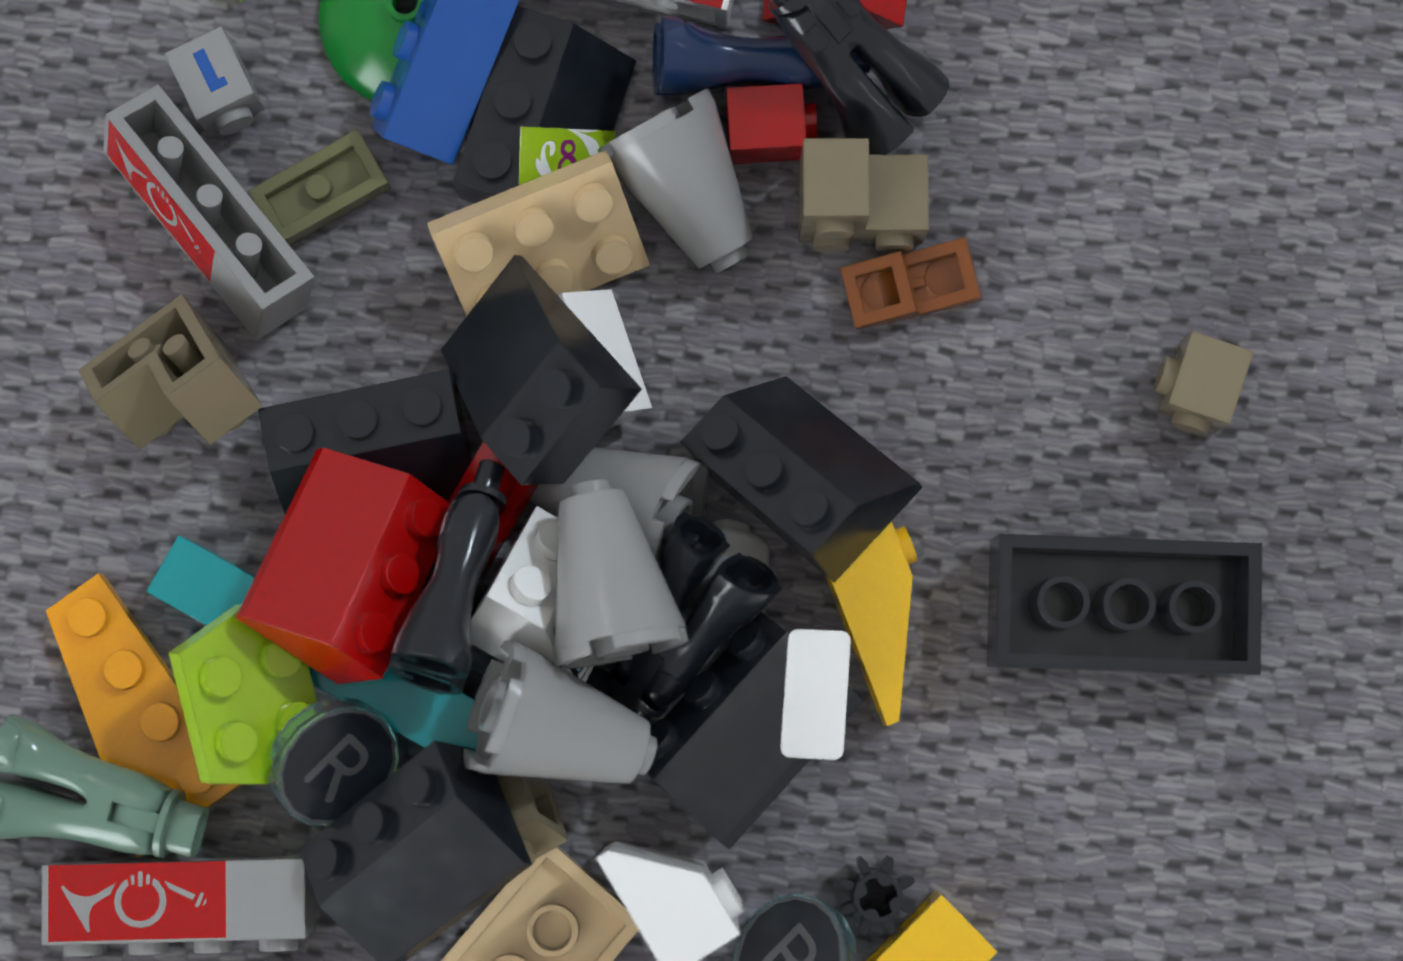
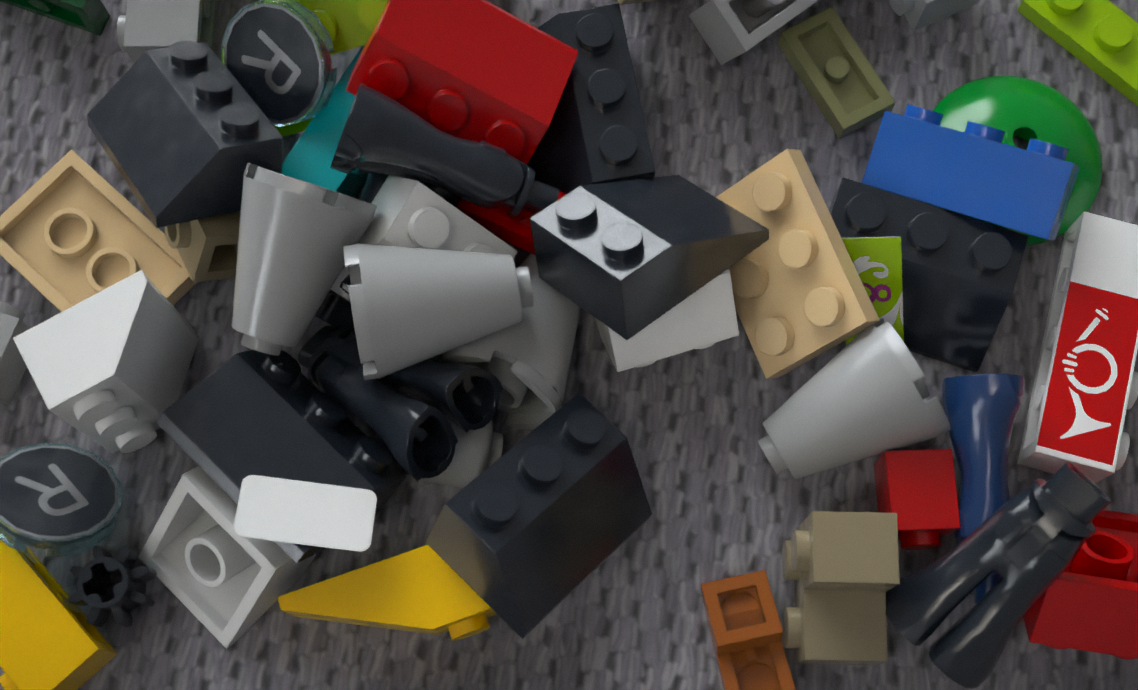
camera: 90 degrees right, 10 degrees down
(848, 801) = (209, 567): none -> white slope

